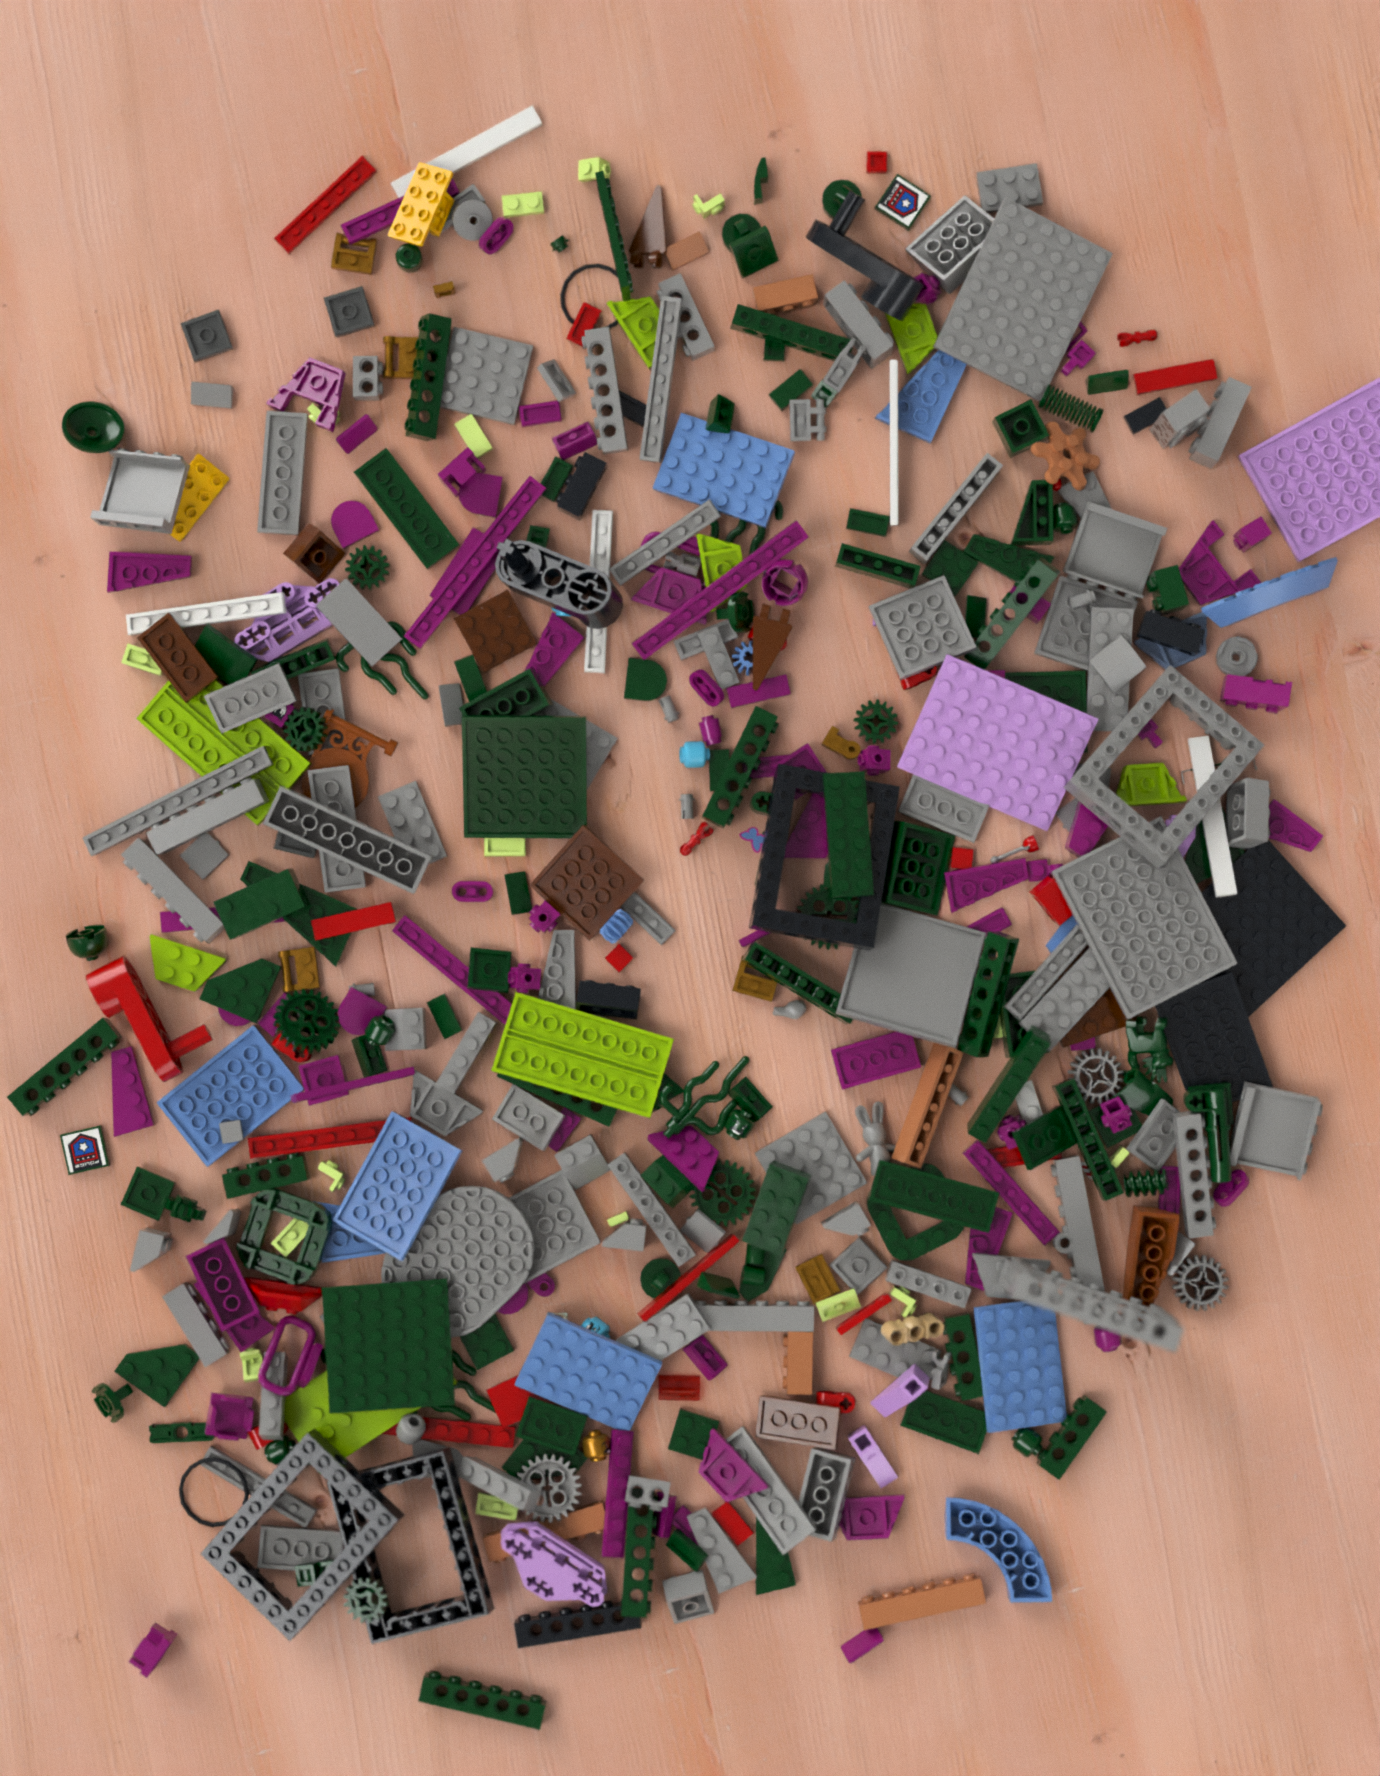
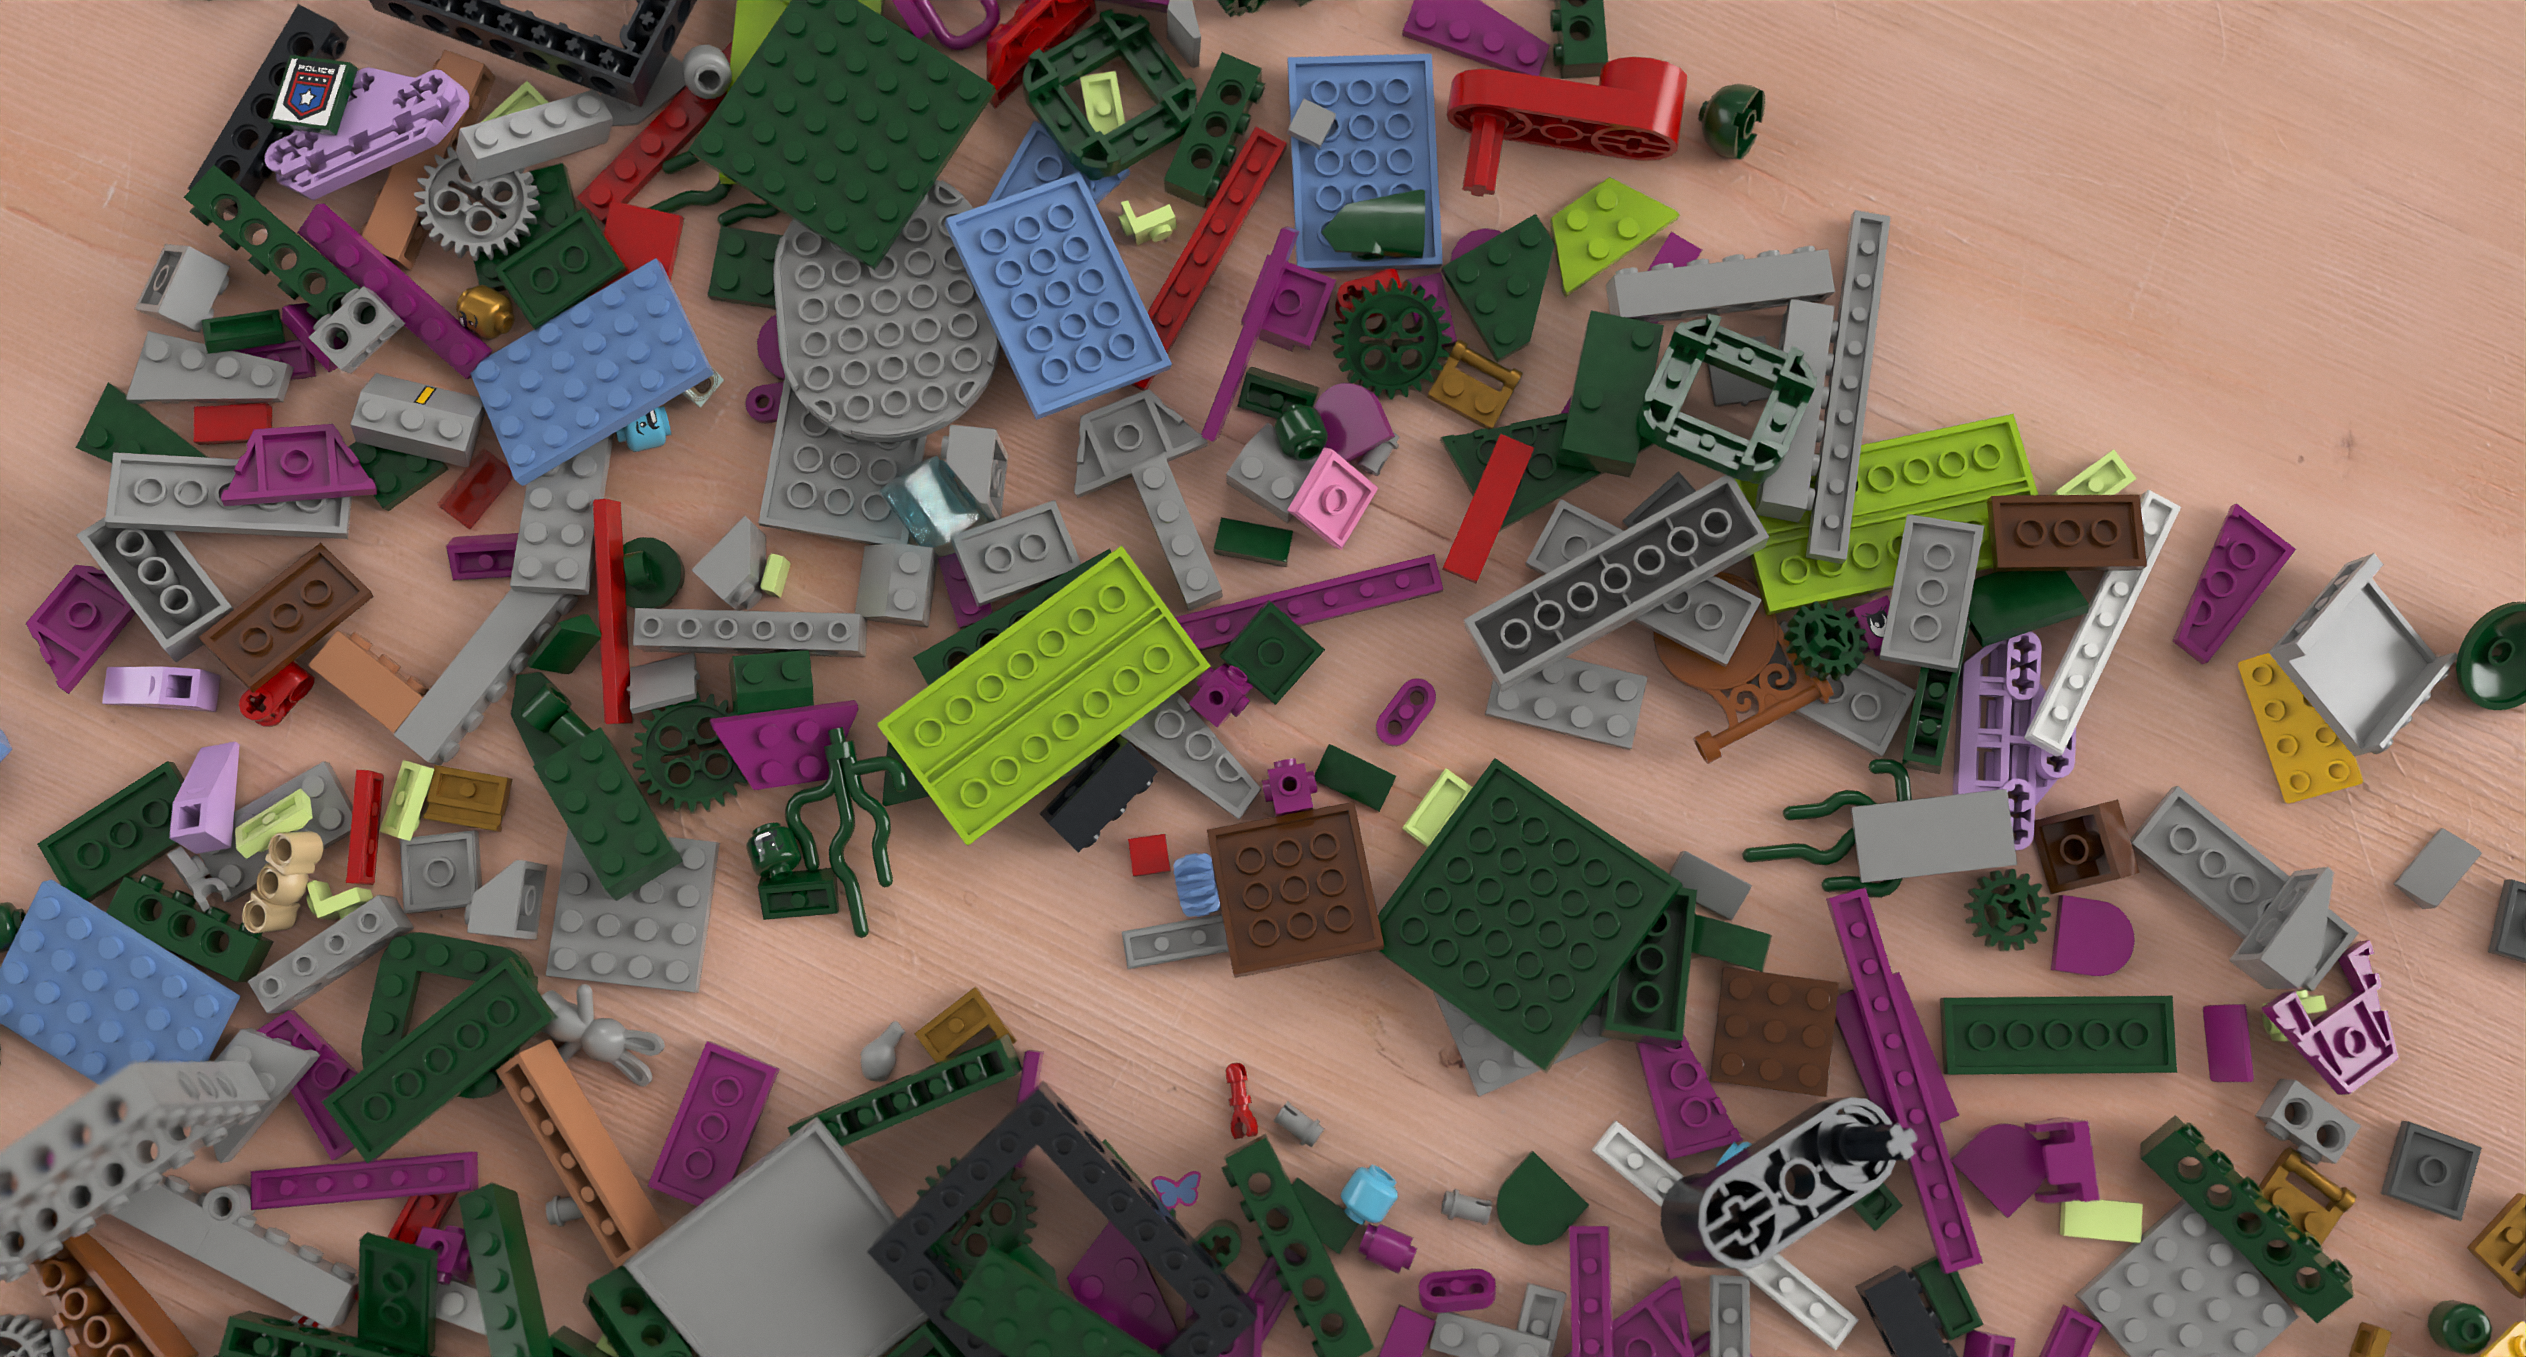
camera: 125 degrees right, 5 degrees down
(202, 856) = (1704, 443): none -> plate
(258, 1063) = (1380, 227): none -> dark green panel
(294, 441) = (2290, 933): none -> light grey slope
(399, 993) = (1332, 498): none -> bright pink tile
(534, 1170) = (930, 502): none -> clear light blue brick
(555, 1601) = (313, 95): none -> tile
(666, 1434) = (418, 419): none -> light grey slope
(890, 1353) = (283, 817): none -> yellowish green plate

